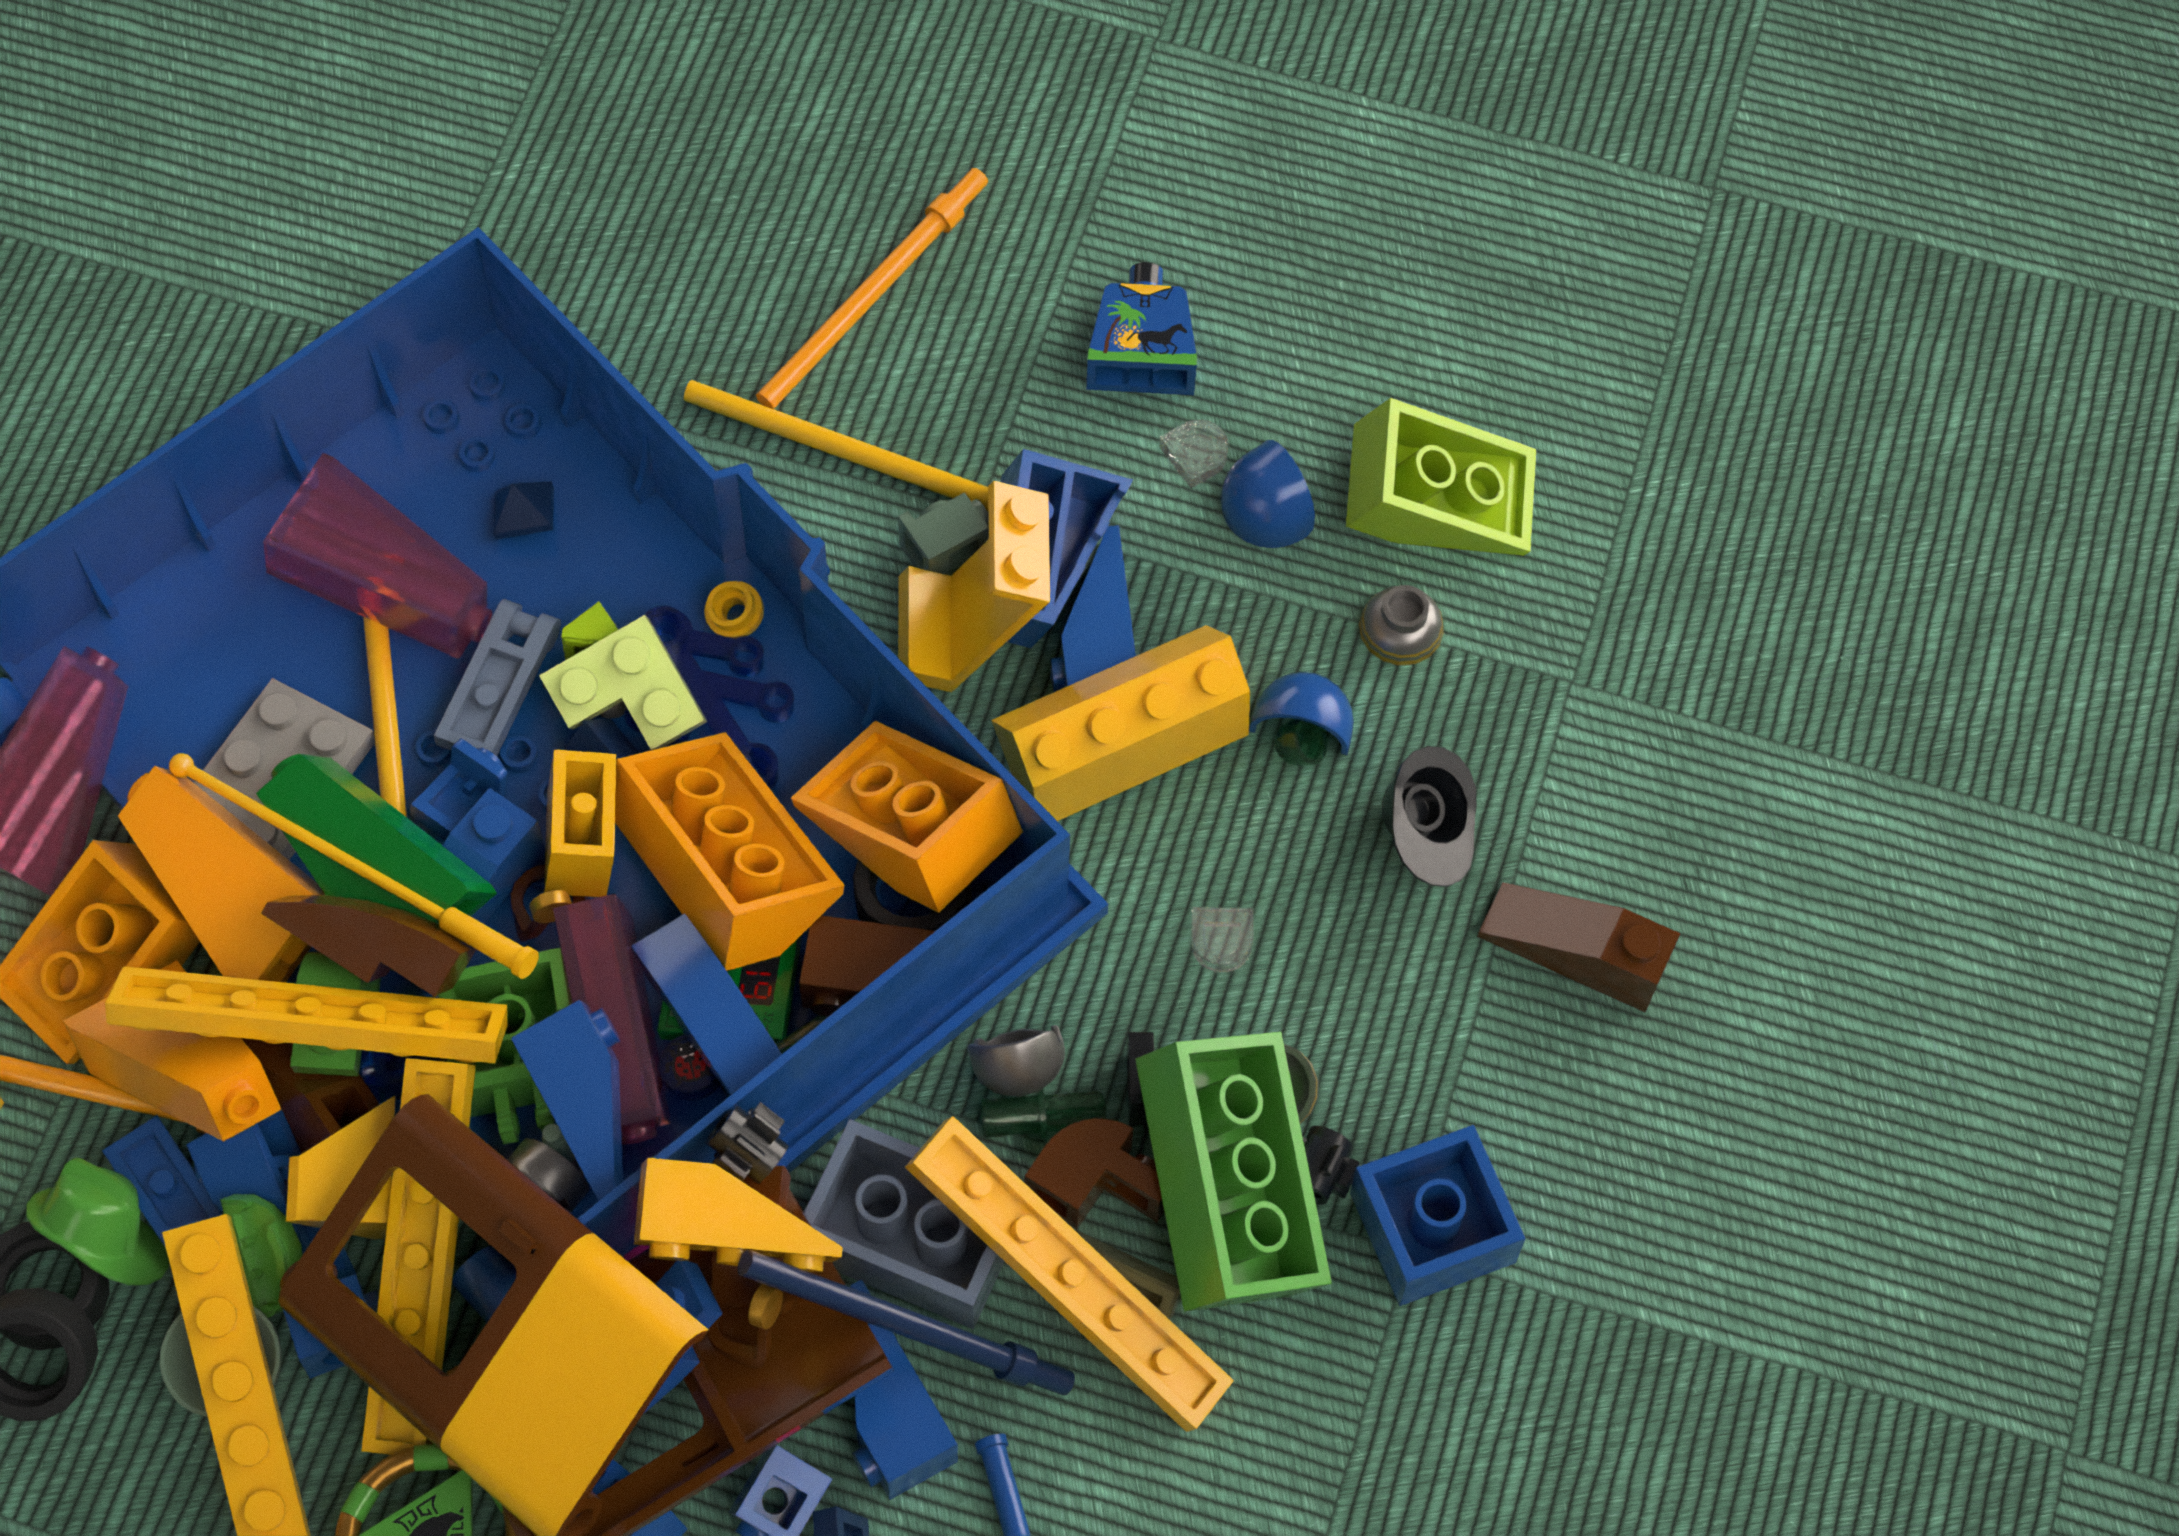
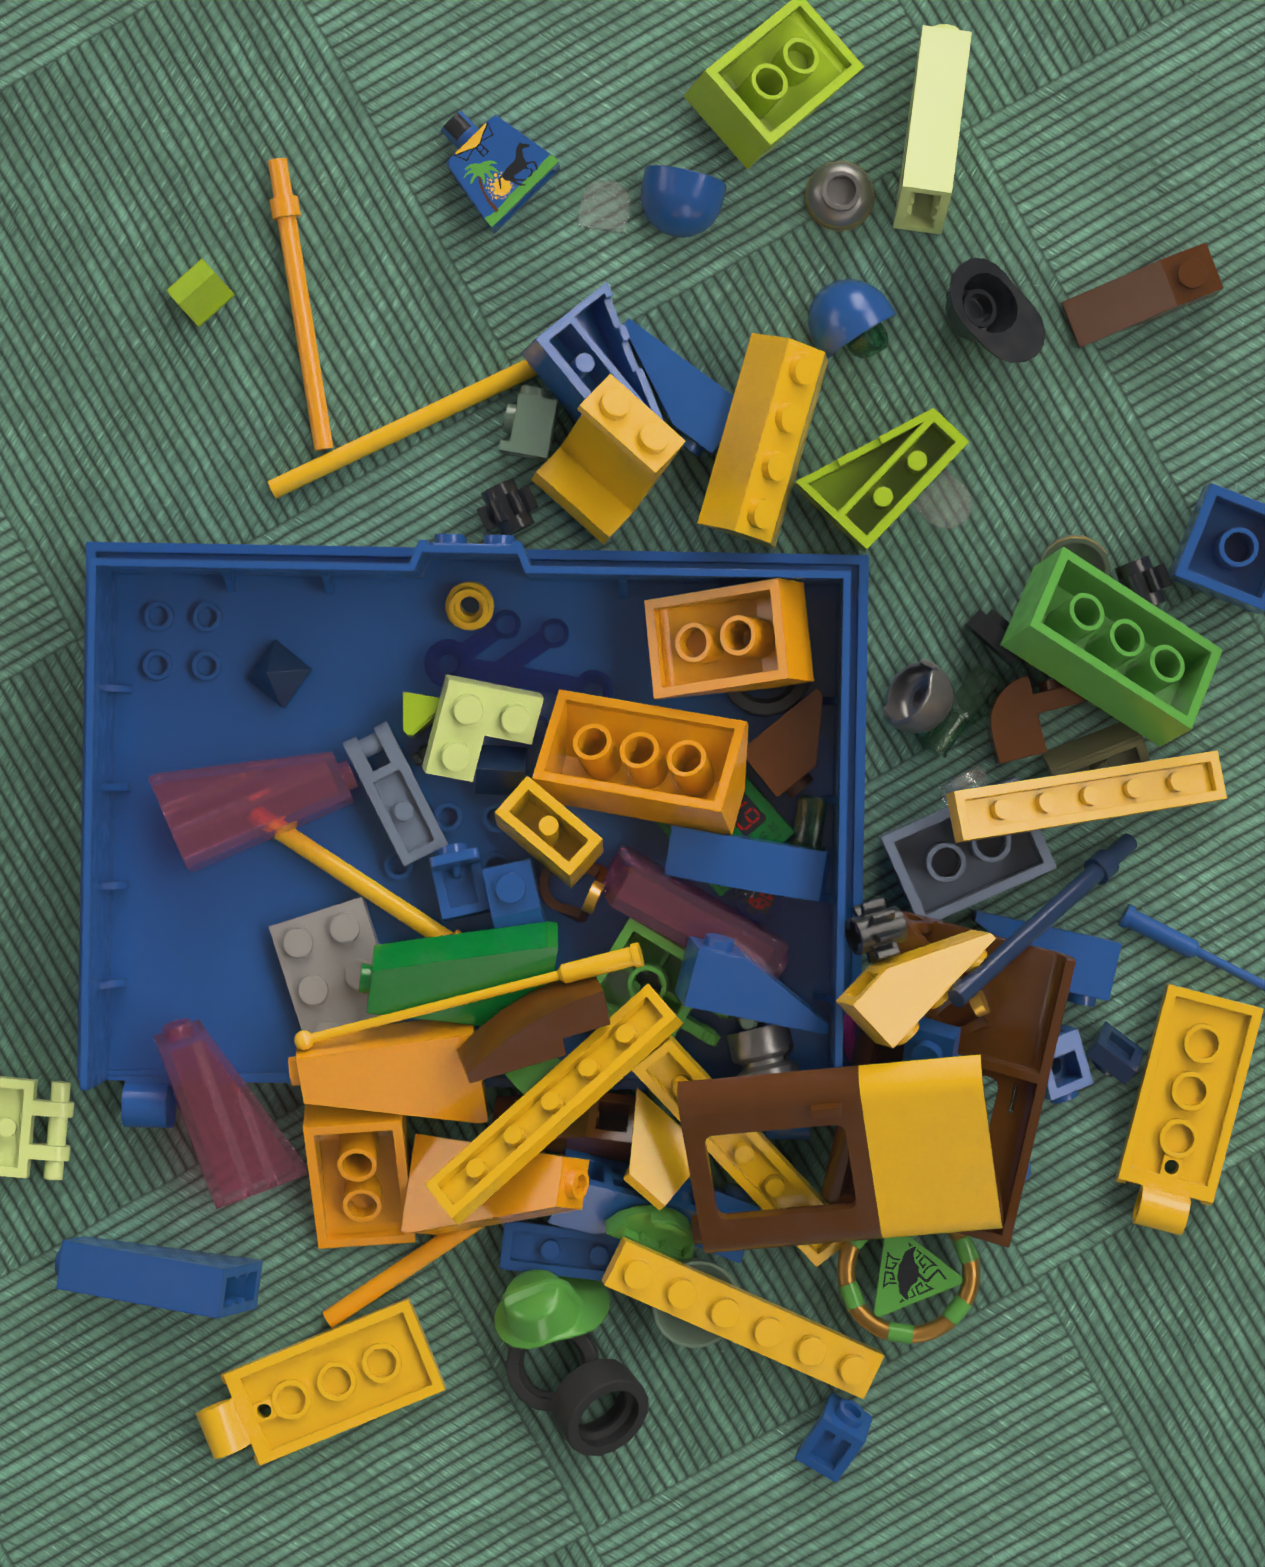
camera: 45 degrees left, 25 degrees up
(807, 210) = (200, 292): none -> lime slope
(857, 573) = (507, 508): none -> black gear
(1193, 853) = (882, 478): none -> lime wedge
(1530, 639) = (933, 129): none -> yellowish green slope

